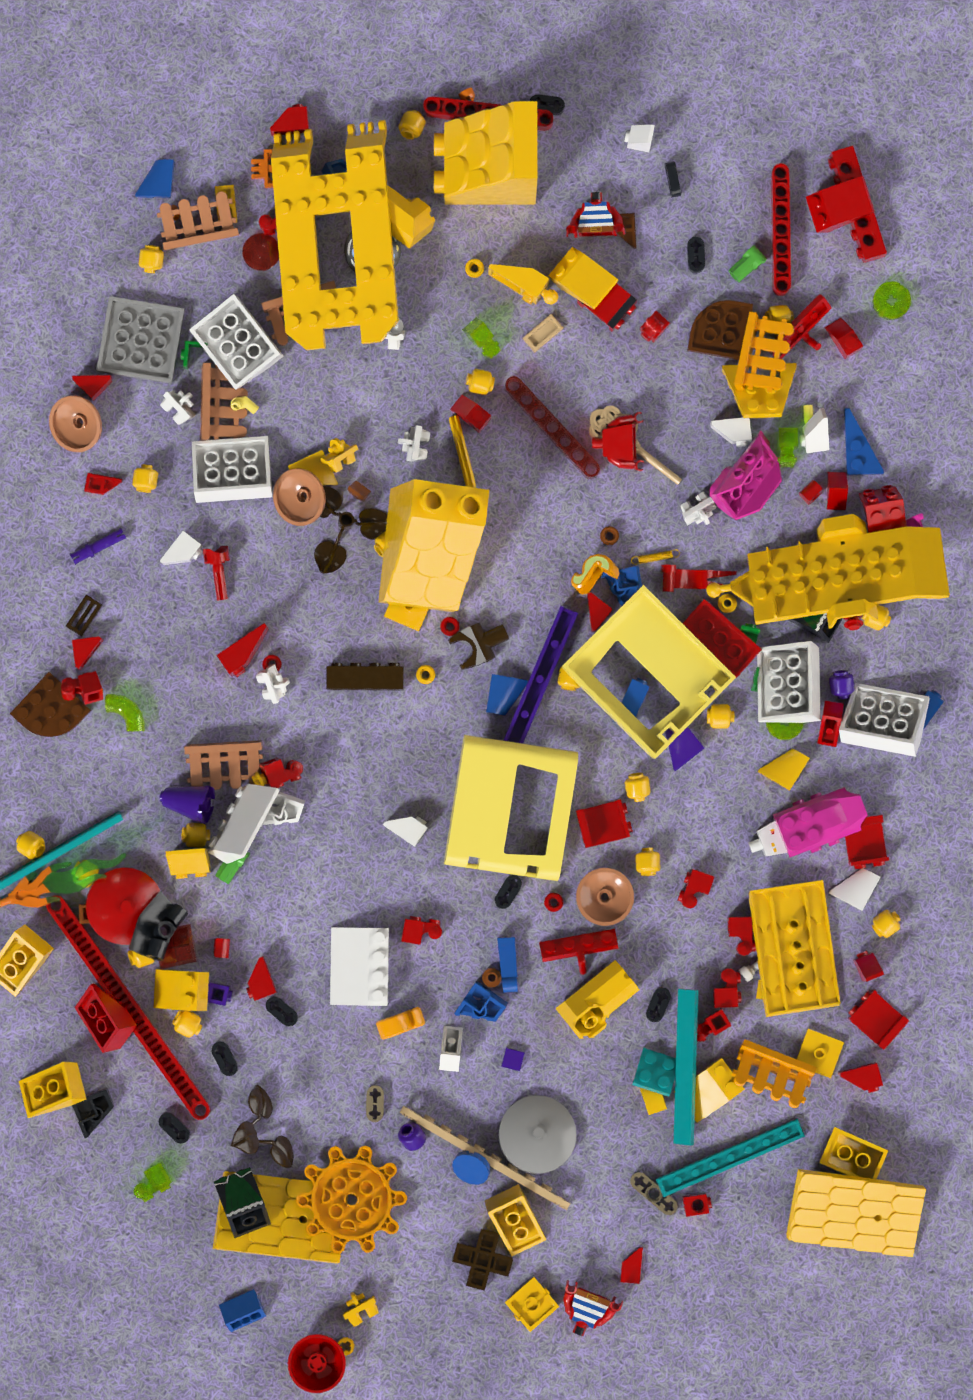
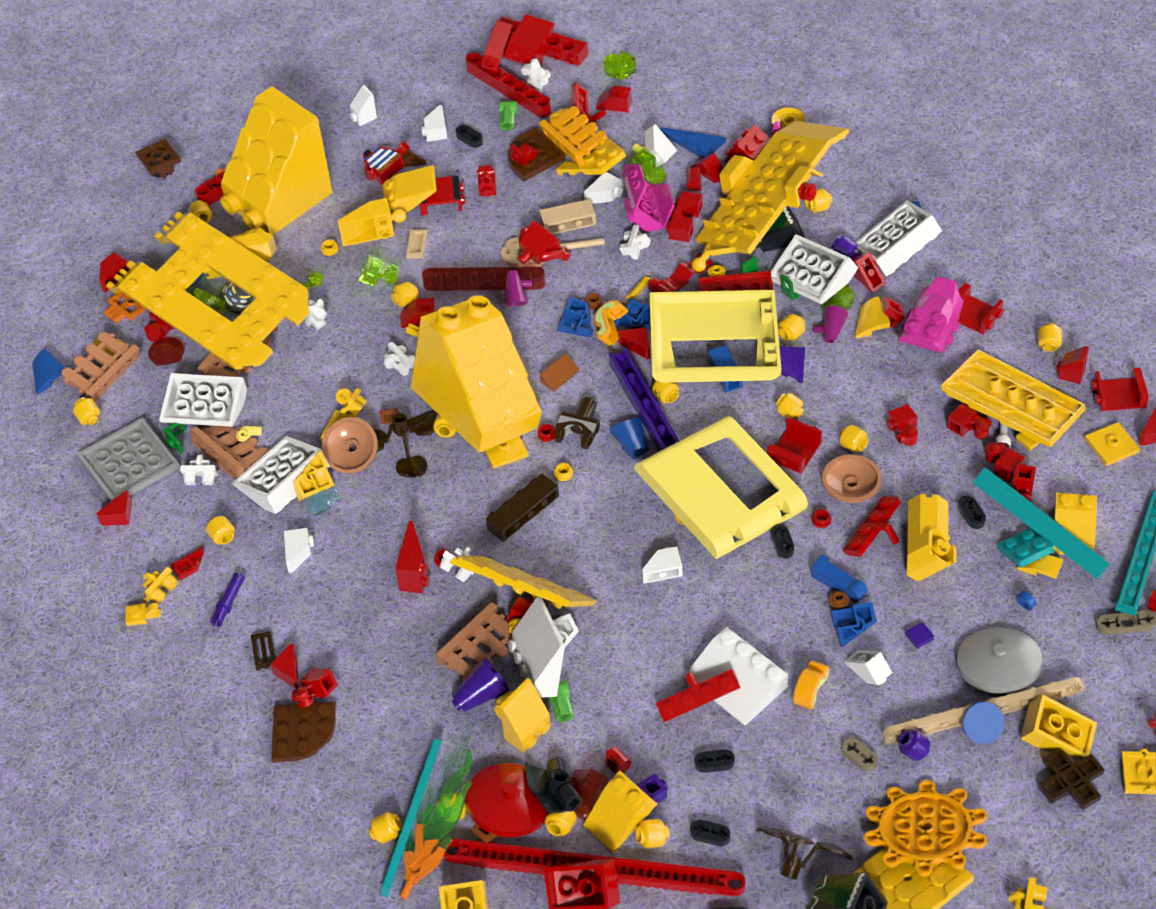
camera: 40 degrees left, 35 degrees down
(30, 494) = (139, 613): none -> yellow plate
(53, 488) = (156, 583): none -> yellow hips
(66, 424) = (116, 538): nougat dish -> none
(127, 709) = (365, 674): clear neon green cylinder -> none
(216, 559) = (329, 527): red piece -> none
(234, 524) = (320, 503): none -> clear light blue plate
(245, 502) = (313, 478): none -> yellow slope
(260, 982) = (675, 752): red slope -> none
(291, 754) = (523, 581): none -> yellow piece
(319, 956) = (697, 694): none -> red plate
(331, 237) = (208, 299): none -> clear neon green plate
(415, 928) = (749, 617): red brick -> none
(431, 30) = (159, 162): none -> reddish brown piece
(434, 292) = (316, 278): none -> clear neon green plate
(514, 580) = (558, 373): none -> dark orange slope
(556, 470) = (514, 290): none -> magenta piece
(586, 535) = (576, 313): none -> blue slope
(608, 1109) = (1026, 600): none -> blue tile
(672, 178) = (408, 114): black beam -> none
(677, 429) = (568, 217): none -> tan brick
(679, 216) = (435, 125): none -> white slope
(709, 327) = (523, 154): none -> red bracket
(751, 745) = (833, 322): none -> magenta piece
(768, 840) = (916, 360): white torso -> none
(776, 514) = (686, 206): none -> red arch
(776, 1063) = (1095, 469): light orange fence -> none
(802, 783) = (893, 311): none -> red bracket
(803, 187) = (496, 46): none -> red slope
(809, 247) = (538, 76): none -> white hips
(857, 888) = (1005, 337): white slope -> none
(960, 505) = (787, 116): none -> yellow dish

